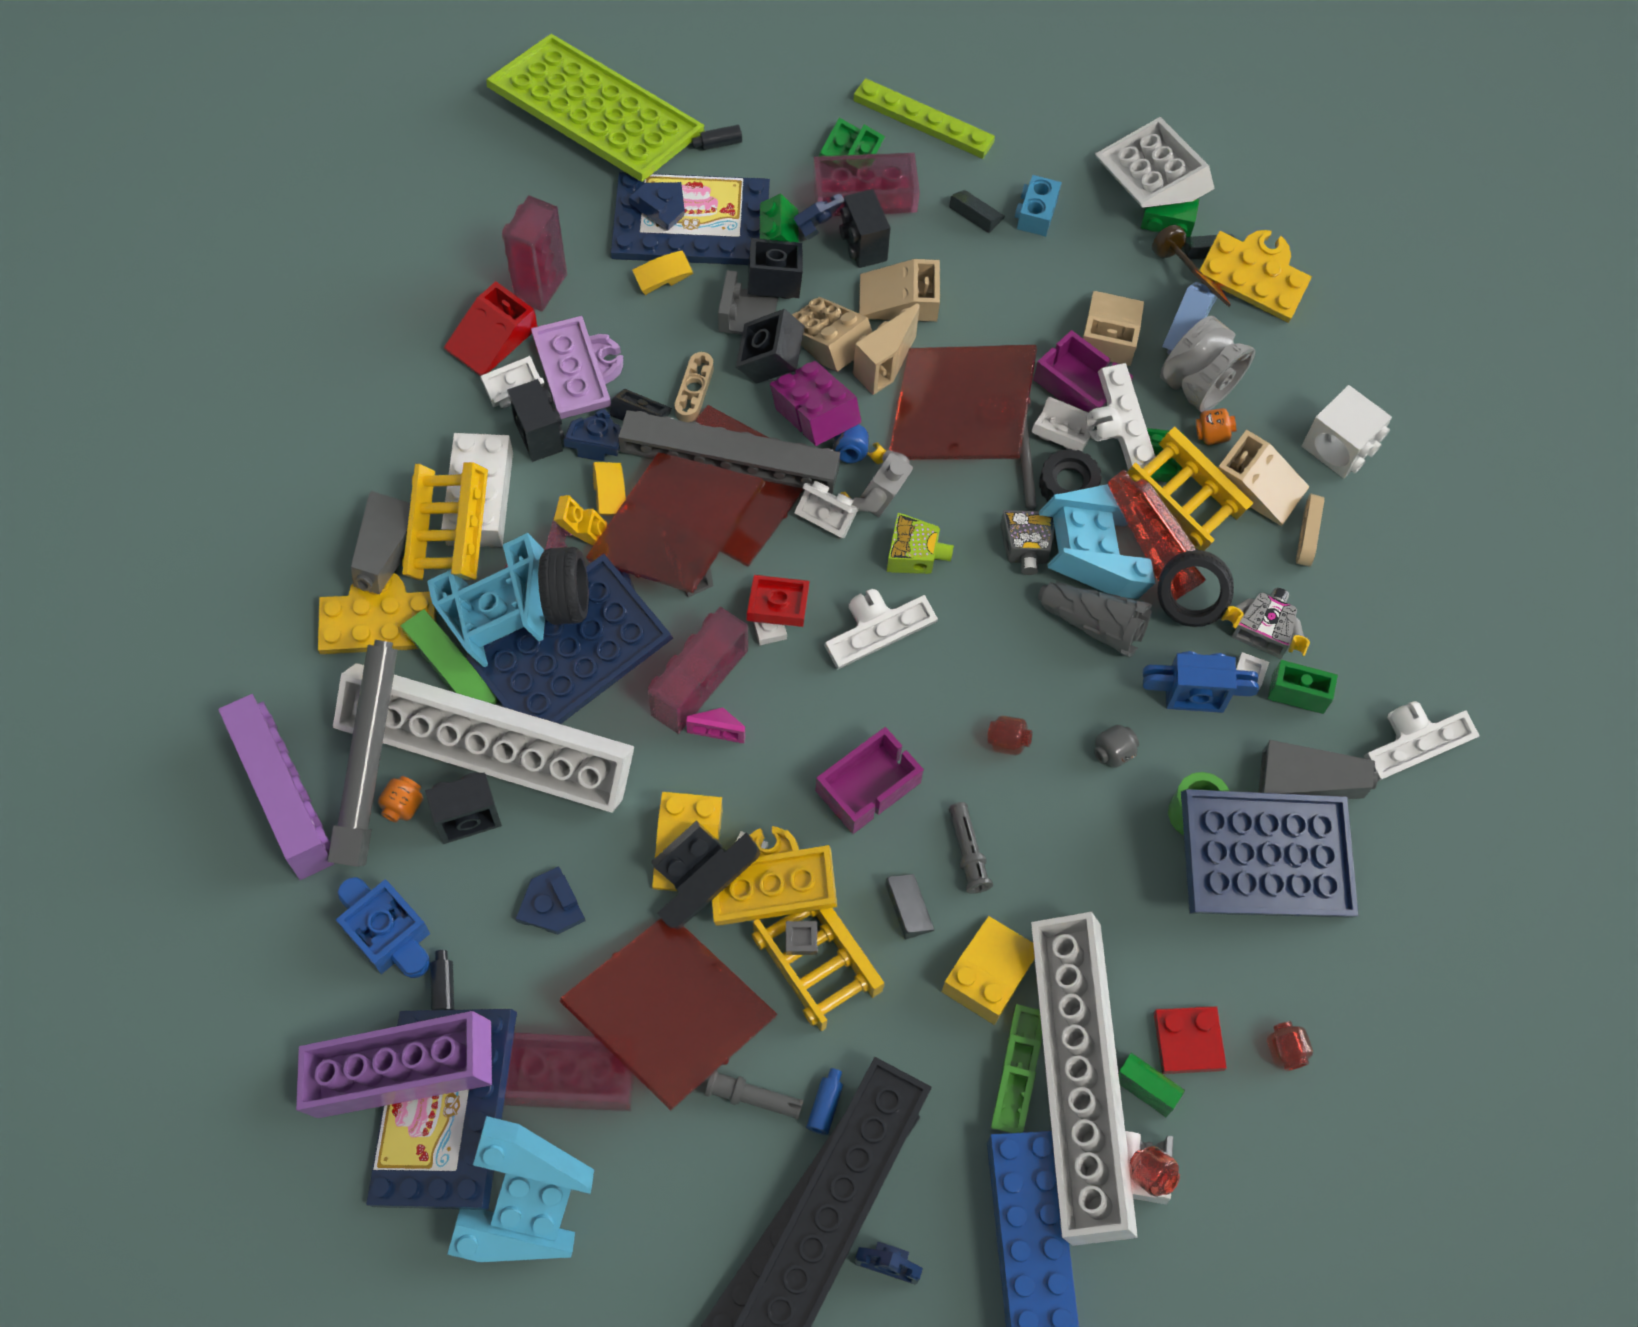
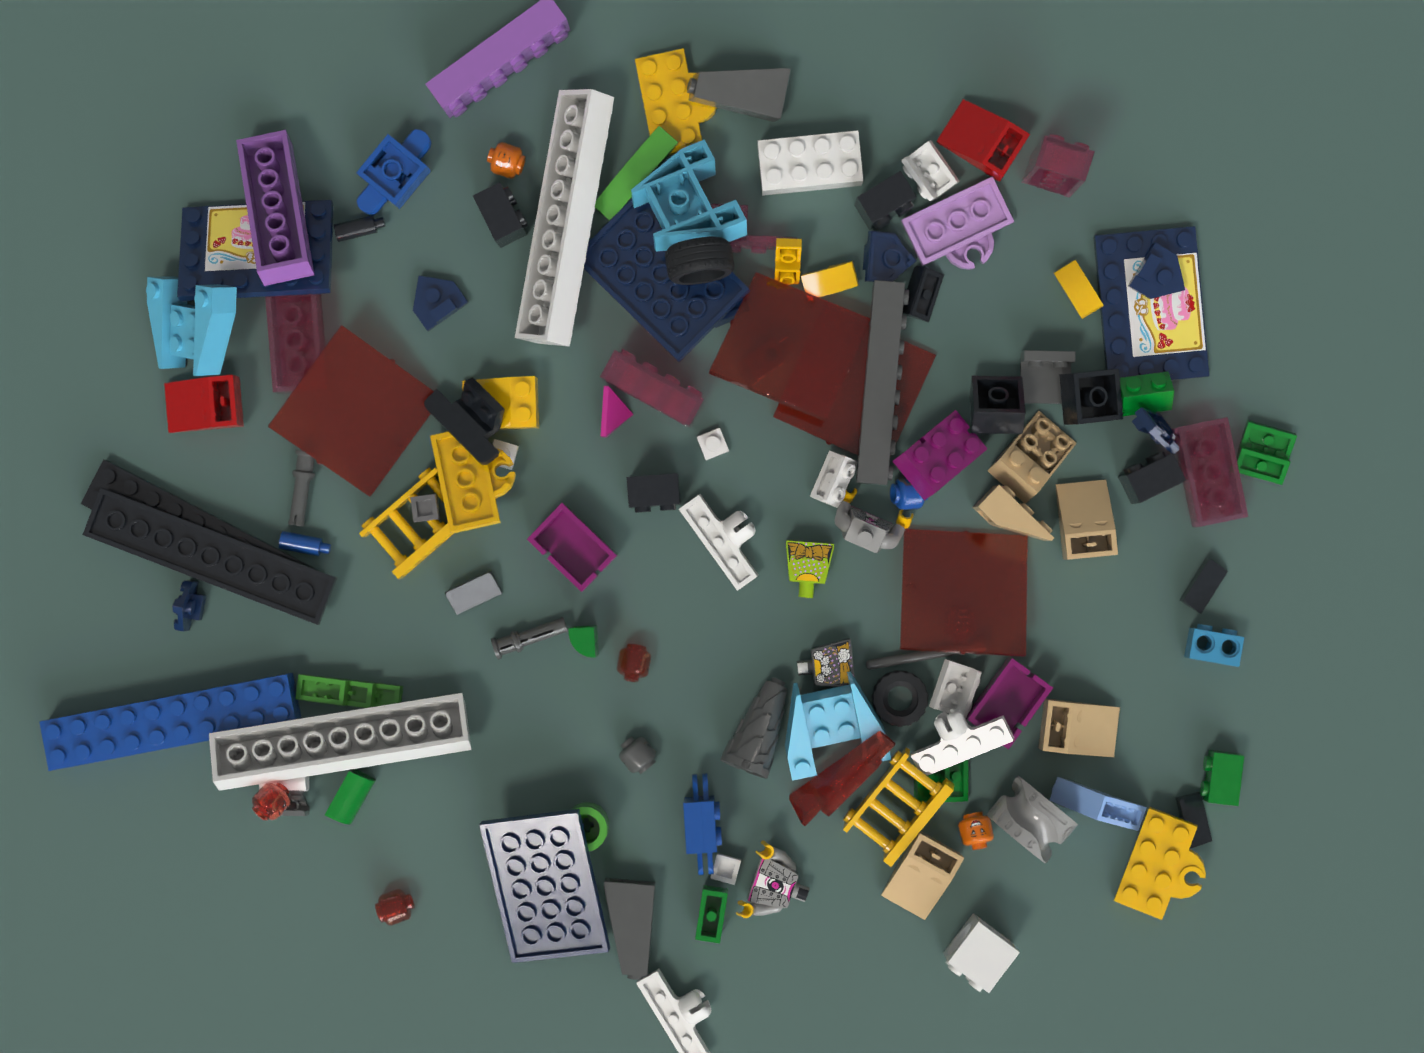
camera: 85 degrees right, 25 degrees up
(351, 834) = (469, 128): dark grey brick -> none
(468, 527) = (772, 161): yellow fence -> none
(595, 106) = (1271, 188): lime plate -> none
(627, 1207) = (204, 404): none -> red slope
(696, 397) = (973, 334): tan beam -> none
(718, 137) = (1254, 317): black cylinder -> none
(778, 600) = (734, 448): red plate -> none
(817, 683) = (653, 491): none -> black brick
(924, 118) = (1314, 521): lime plate -> none
(979, 777) = (585, 640): none -> green brick
(990, 970) = (427, 663): yellow slope -> none
(1157, 166) = (1268, 758): white slope -> none
(1169, 243) = (1129, 820): dark brown piece -> none
(1189, 617) = (771, 816): black tyre -> none
(1189, 1040) = (392, 827): red plate -> none
(1310, 530) = (877, 920): tan beam -> none

